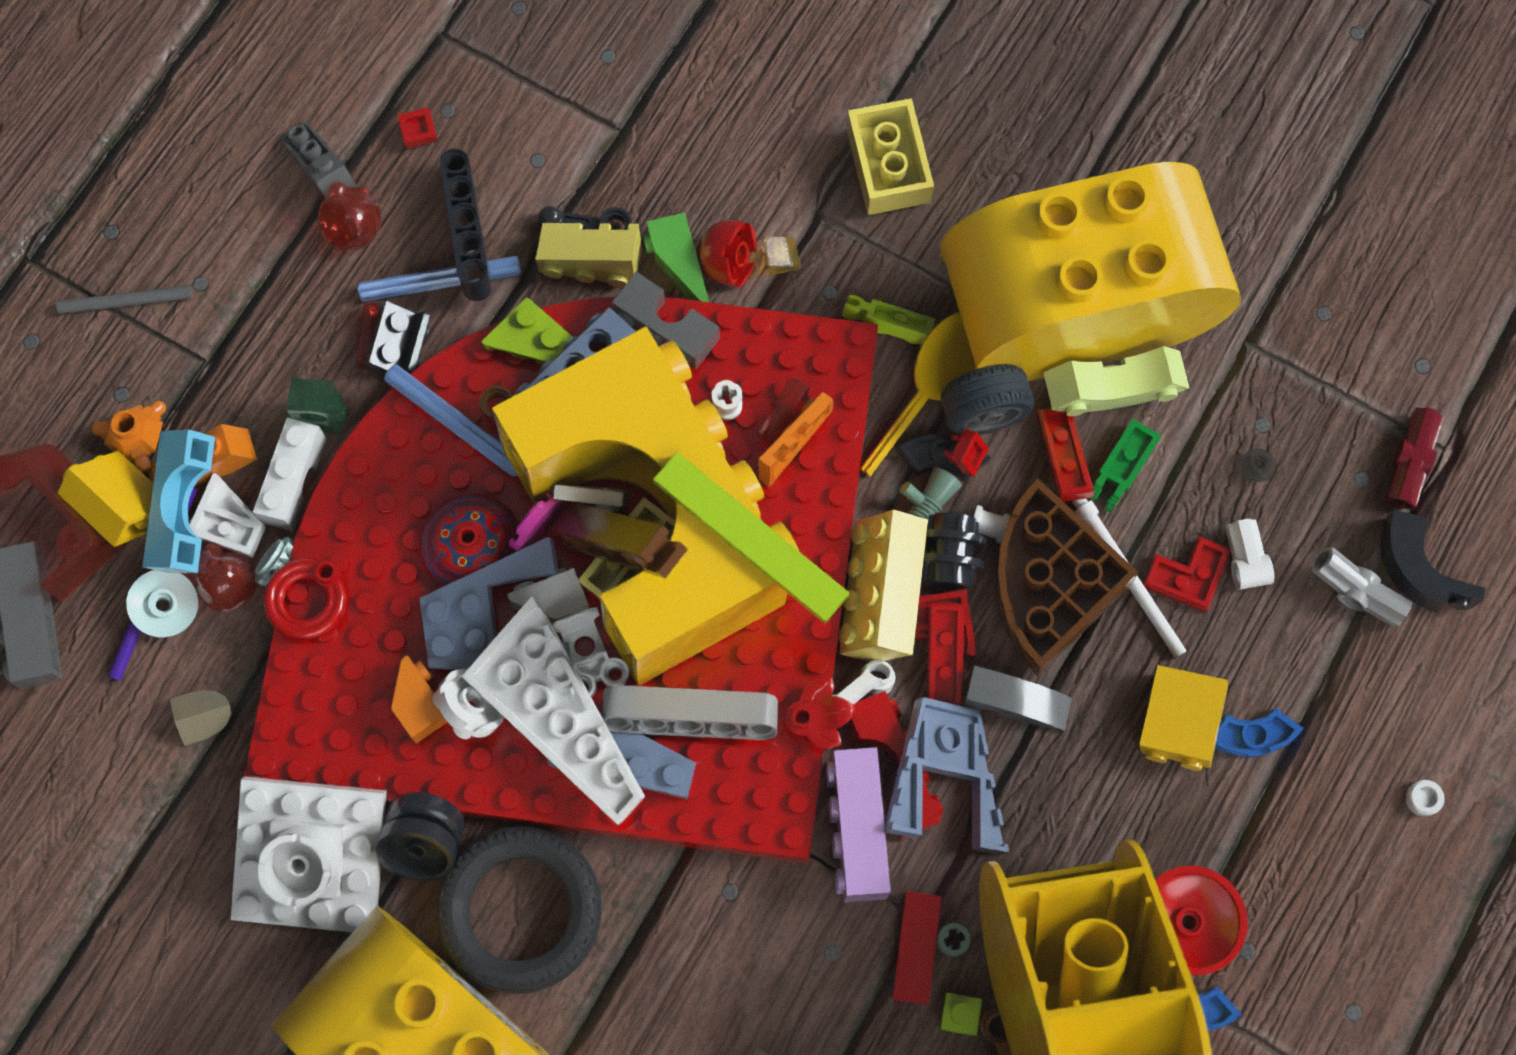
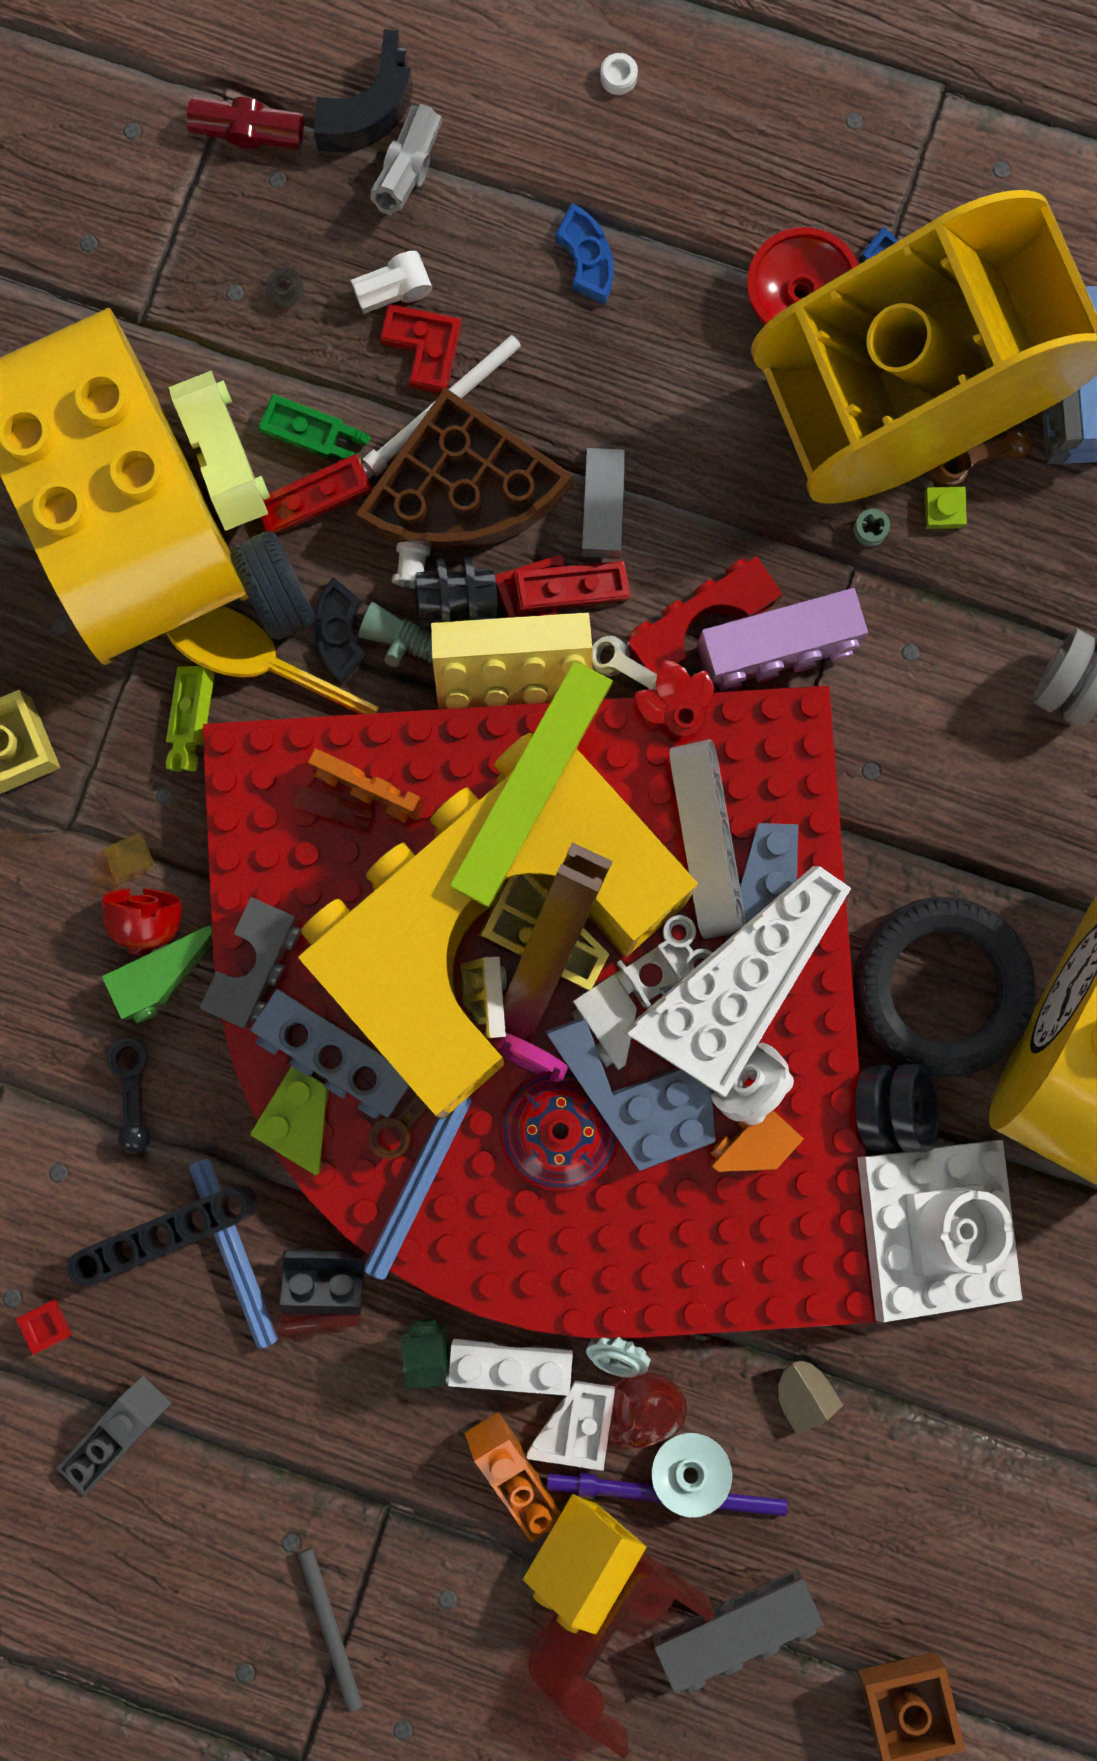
camera: 100 degrees left, 10 degrees up
(133, 432) = (495, 1569): orange rock -> none
(180, 463) = (625, 1482): medium azure arch -> none
(298, 570) = (628, 1309): red piece -> none
(349, 217) = (179, 1378): clear red piece -> none
(589, 253) = (172, 1080): light yellow wedge -> none
(734, 393) = (322, 870): white bush -> none
(916, 948) = (887, 564): red tile -> none
(953, 744) = (669, 565): sand blue wing -> none
(968, 452) = (335, 597): red tile -> none
(1183, 718) = (590, 323): yellow brick -> none

